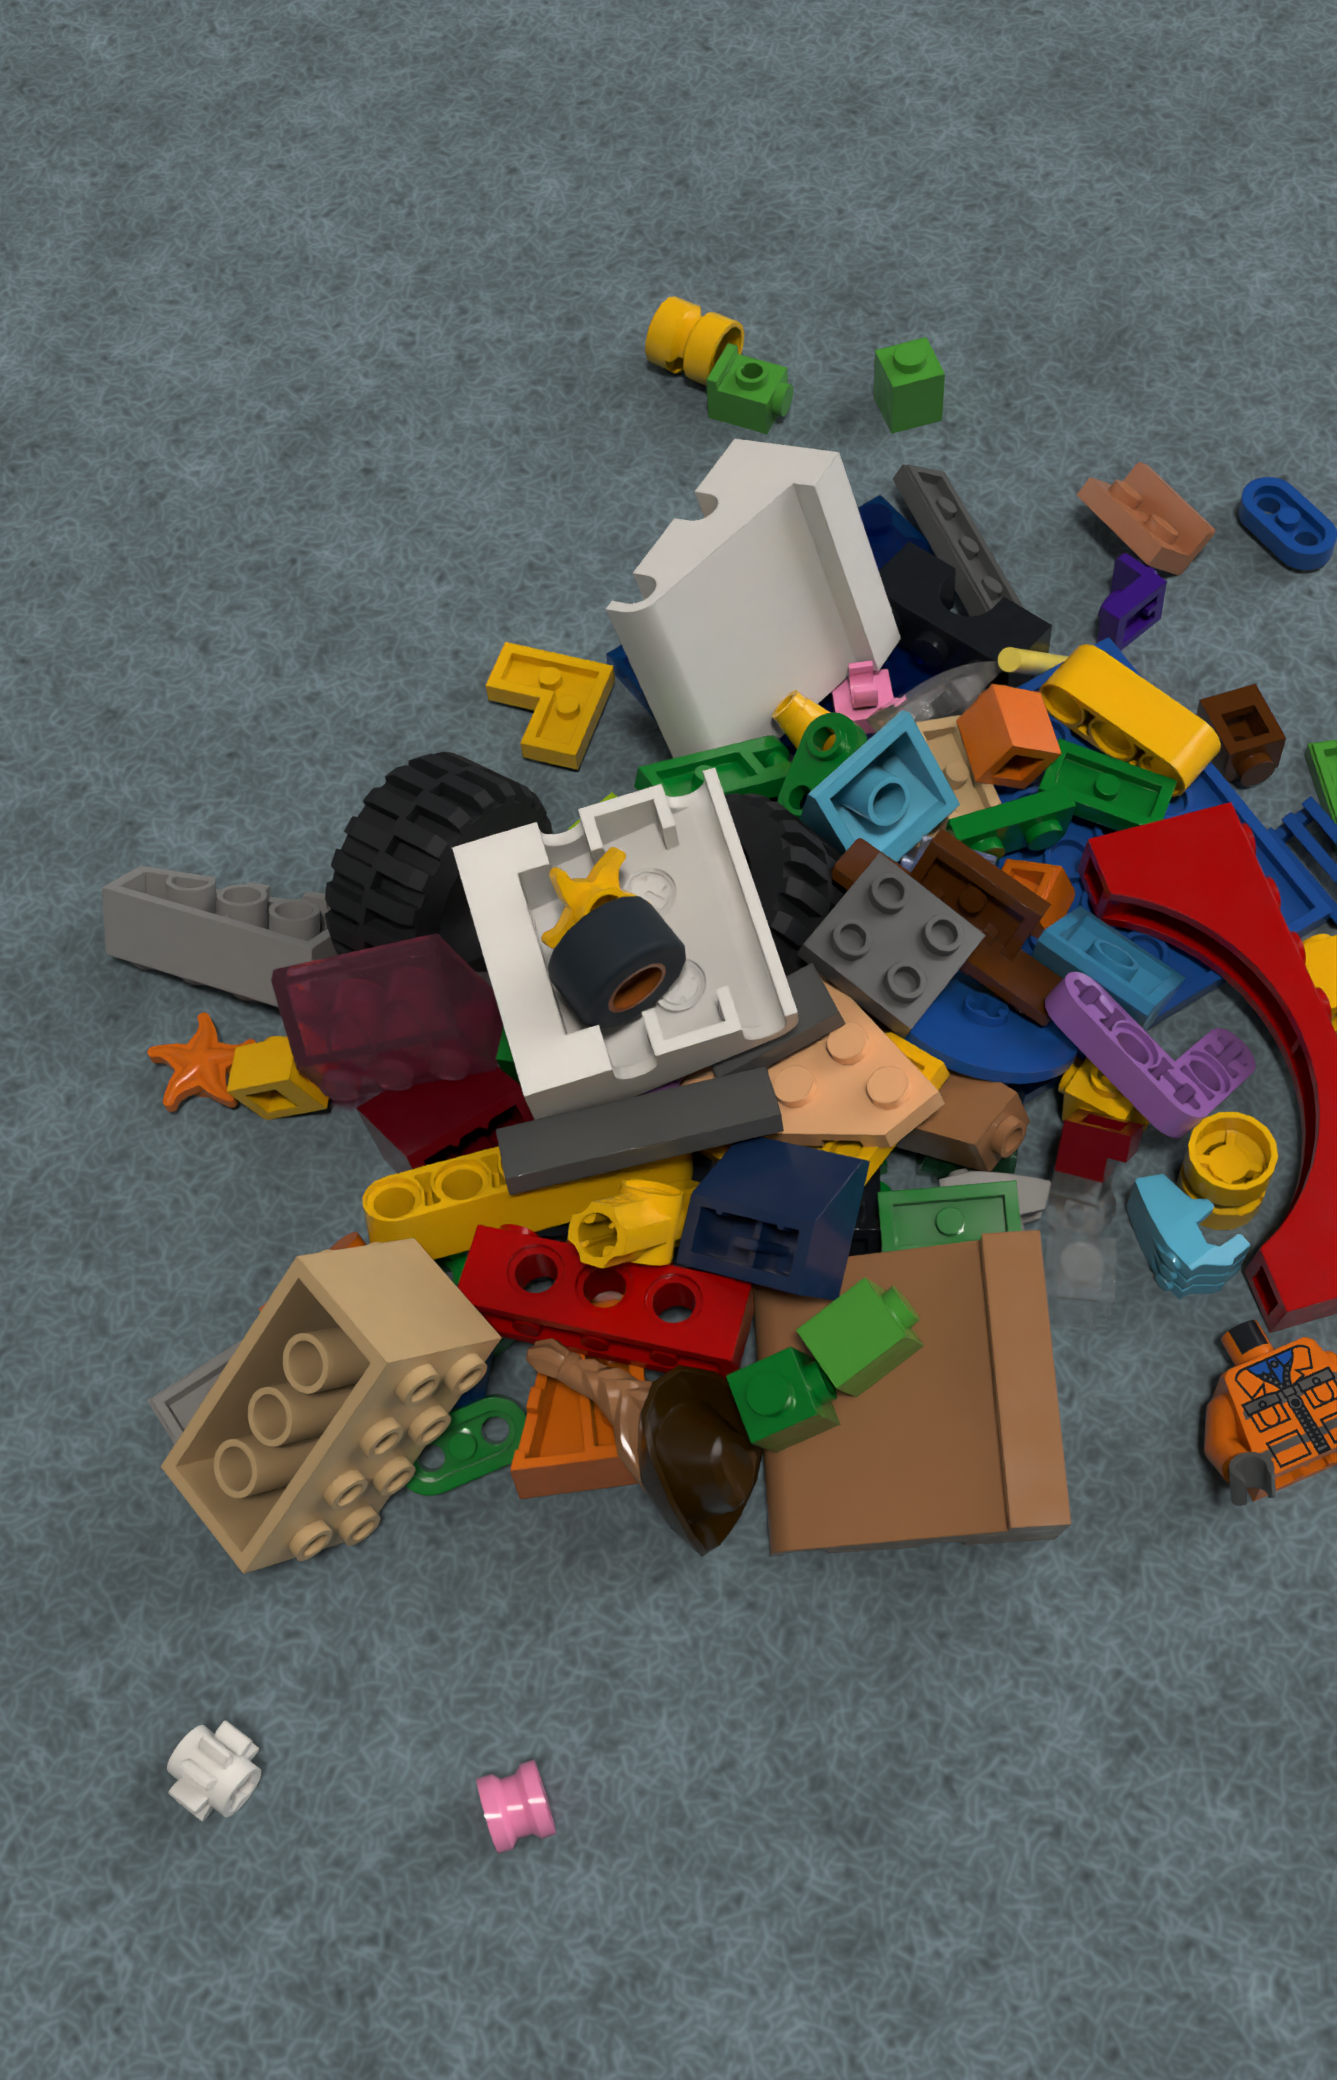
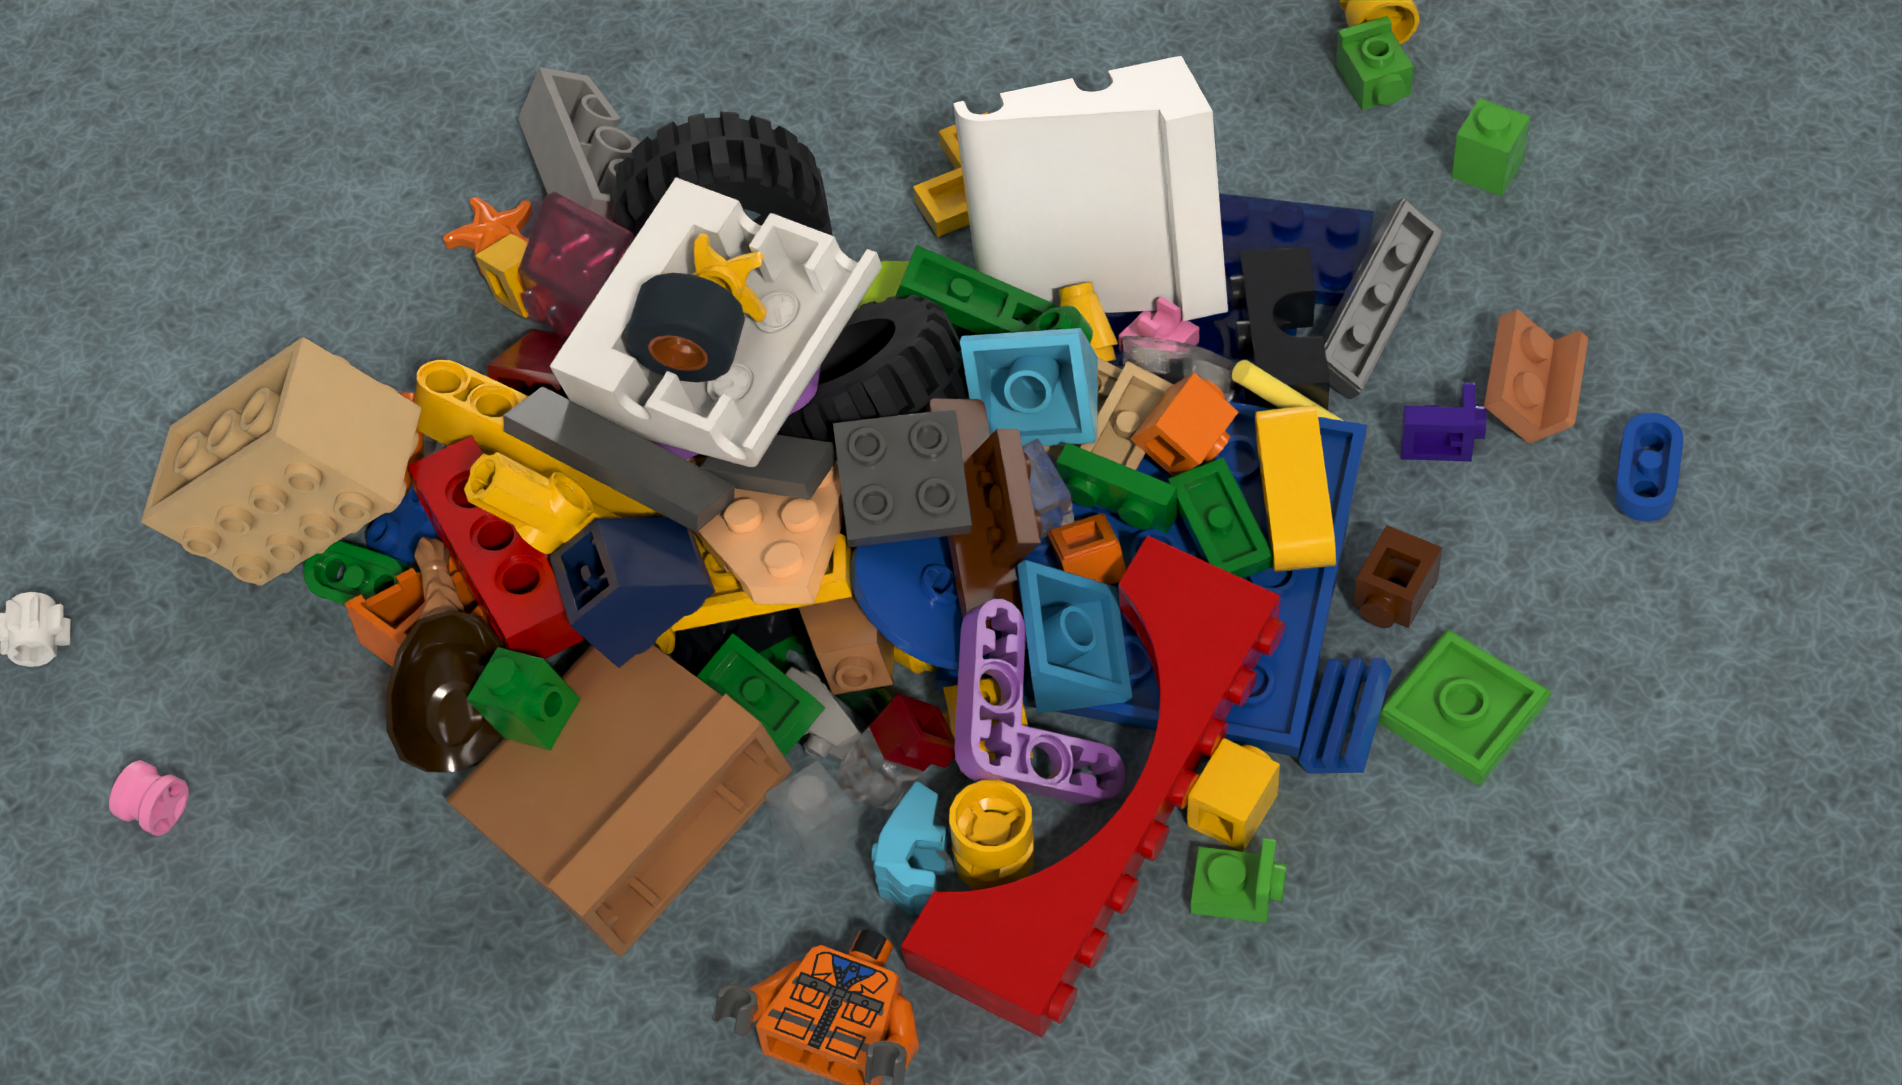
camera: 45 degrees right, 5 degrees down
(862, 1336) = (599, 698): bright green brick -> none

